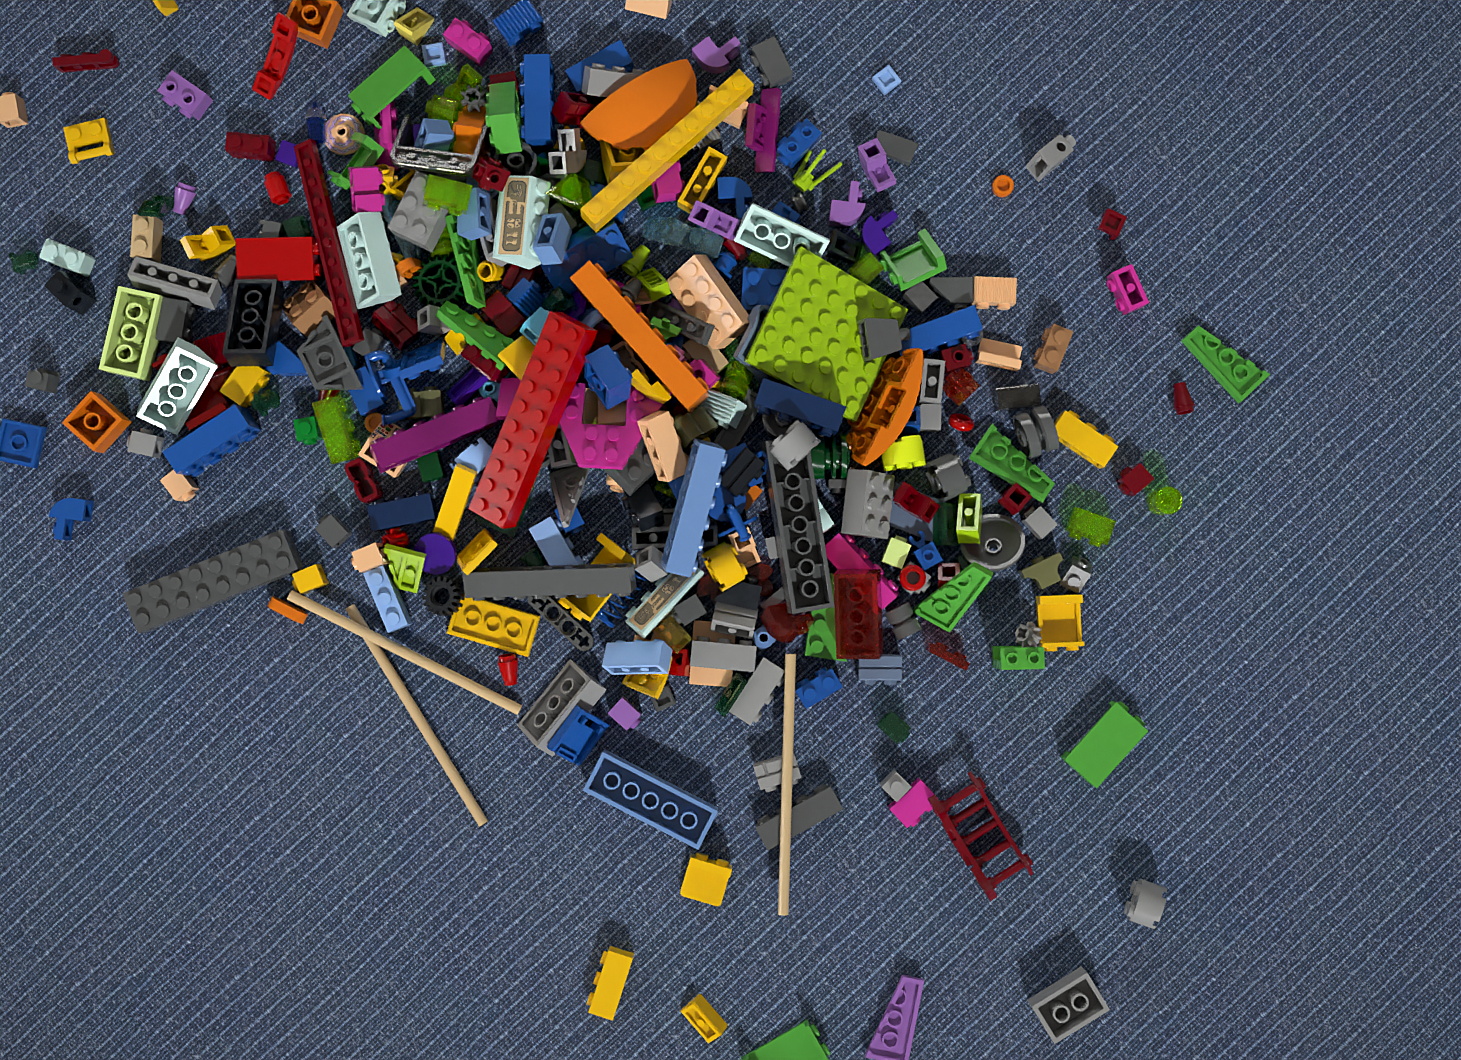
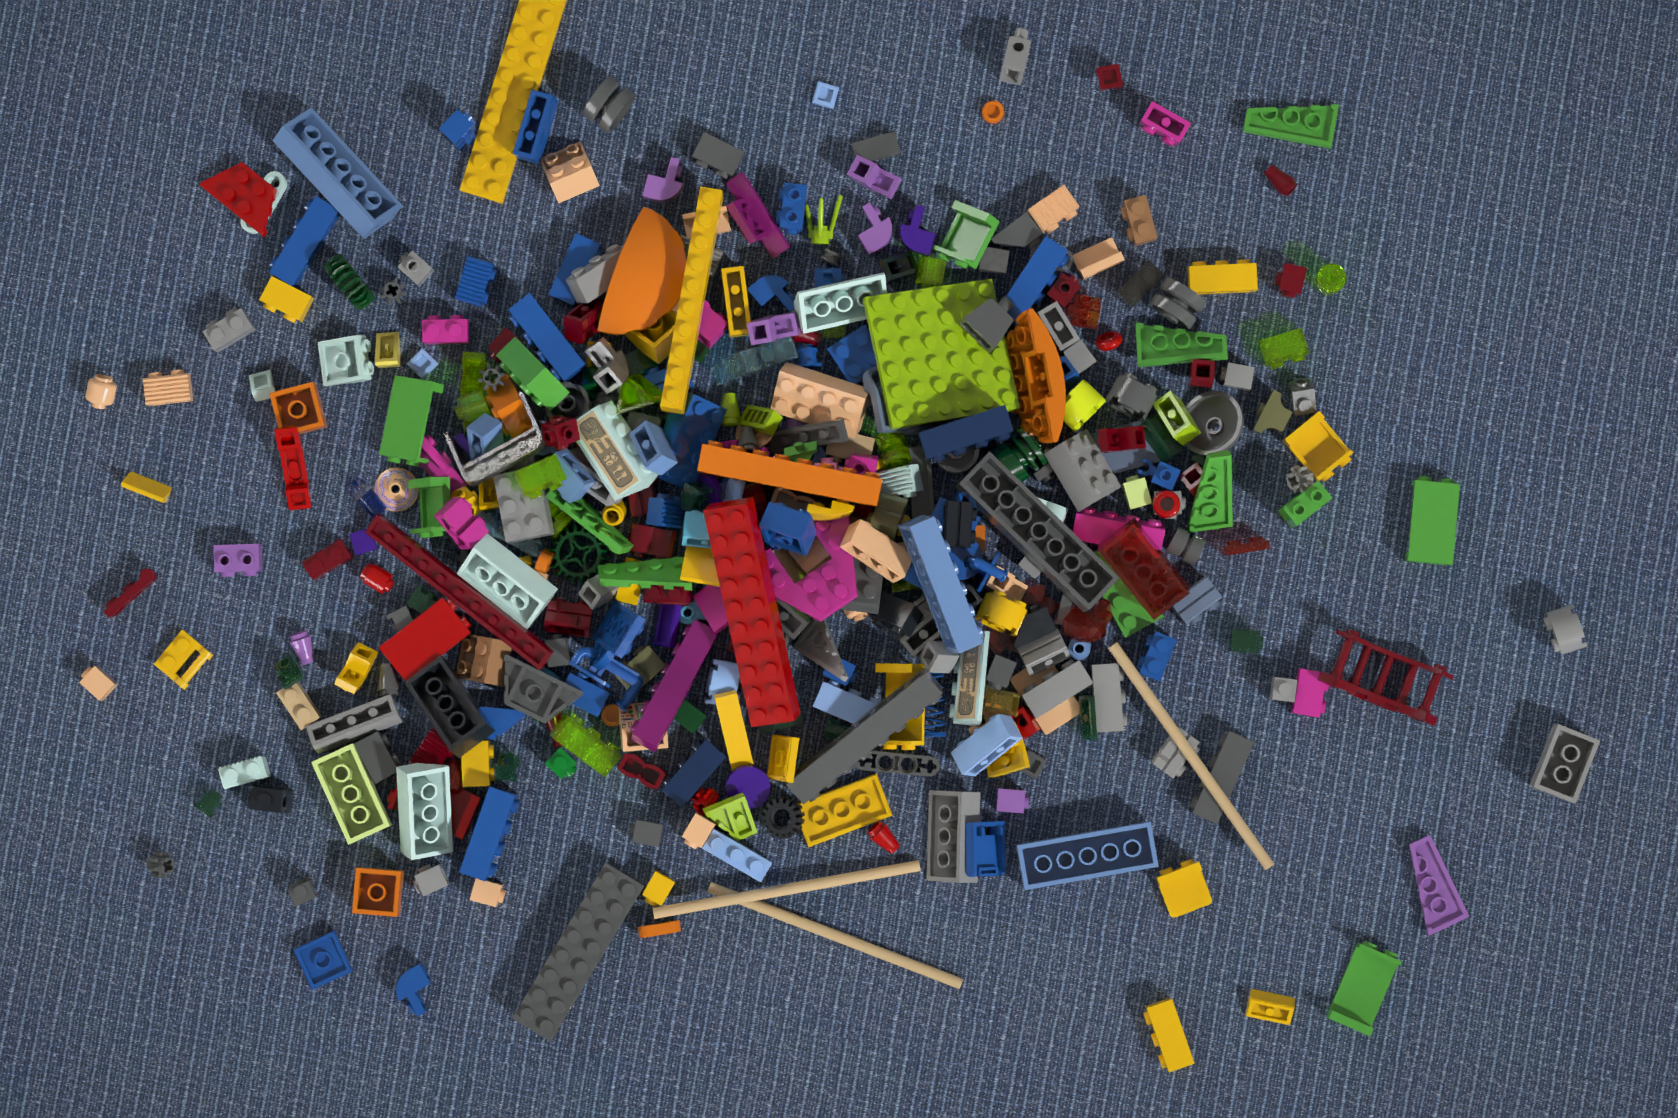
camera: 35 degrees left, 0 degrees up
(794, 445) = (987, 469): light grey brick -> none

